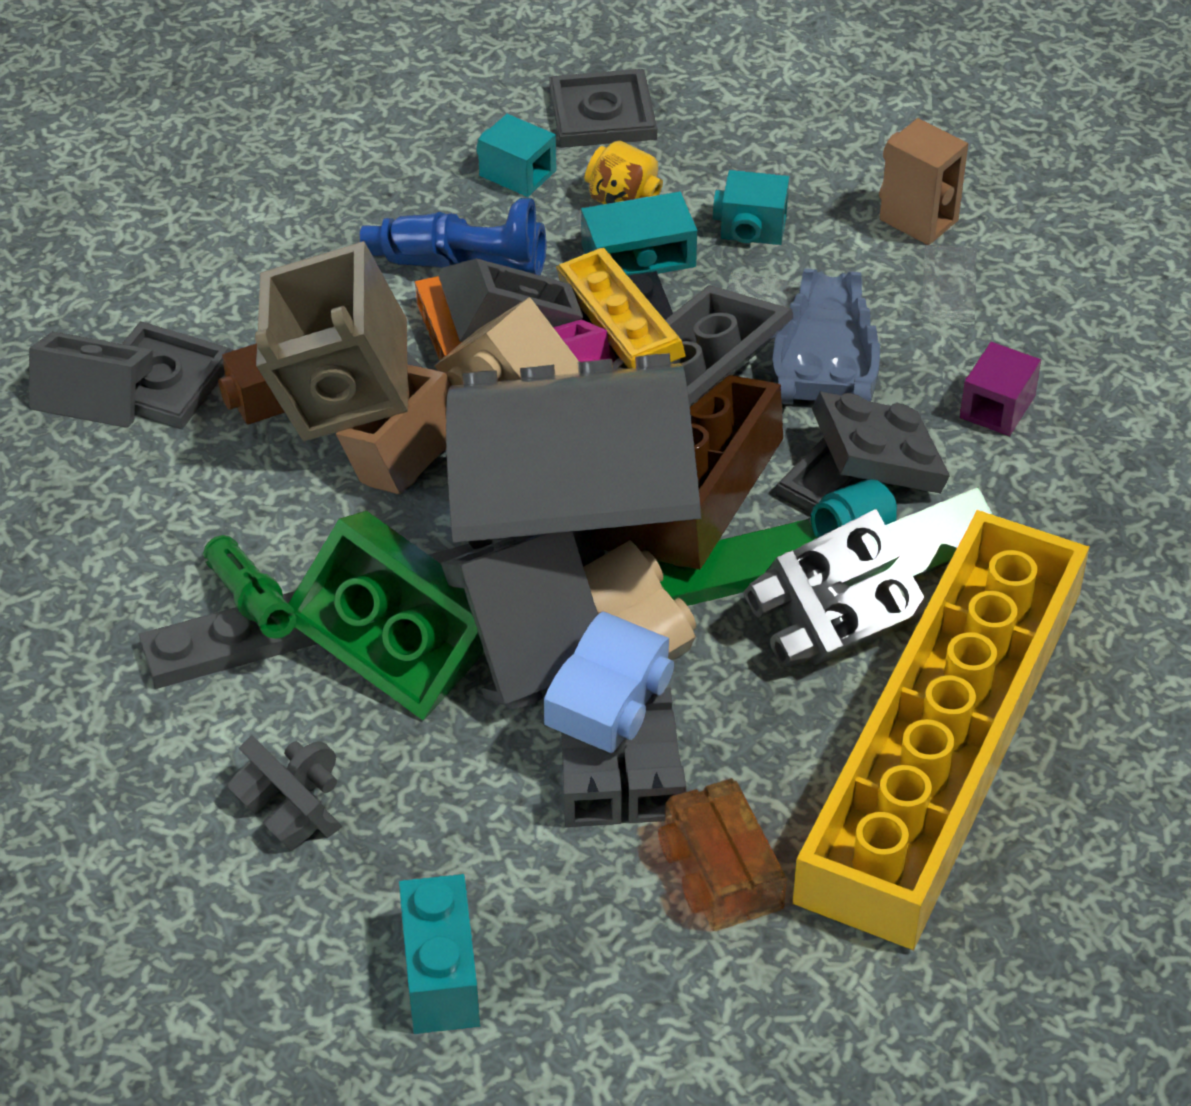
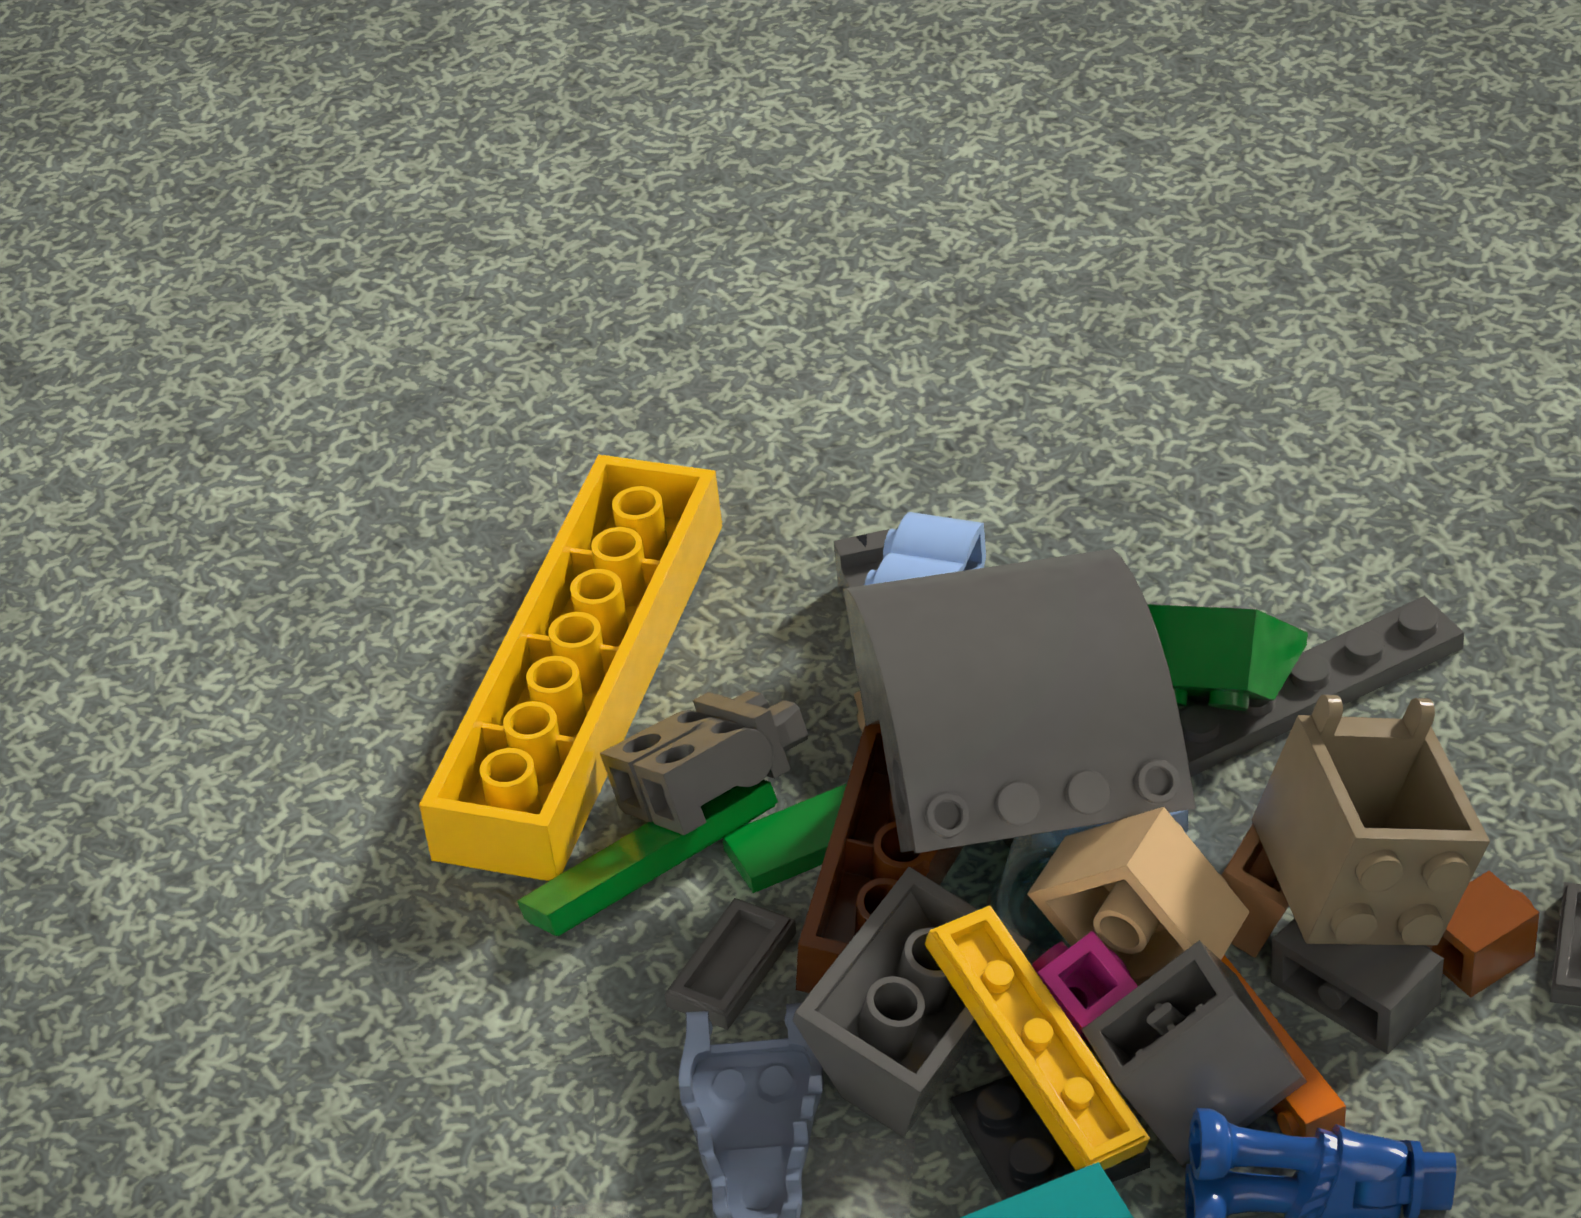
camera: 175 degrees right, 5 degrees down
(254, 593) = (1342, 641): green pin -> none
(265, 776) = (1231, 516): dark grey hips -> none
(439, 954) = (1032, 409): teal brick -> none
(723, 855) = (788, 528): clear orange brick -> none
(851, 503) = (693, 873): teal brick -> none
(879, 442) = (670, 958): dark grey plate -> none
(1000, 388) = (517, 1080): magenta brick -> none

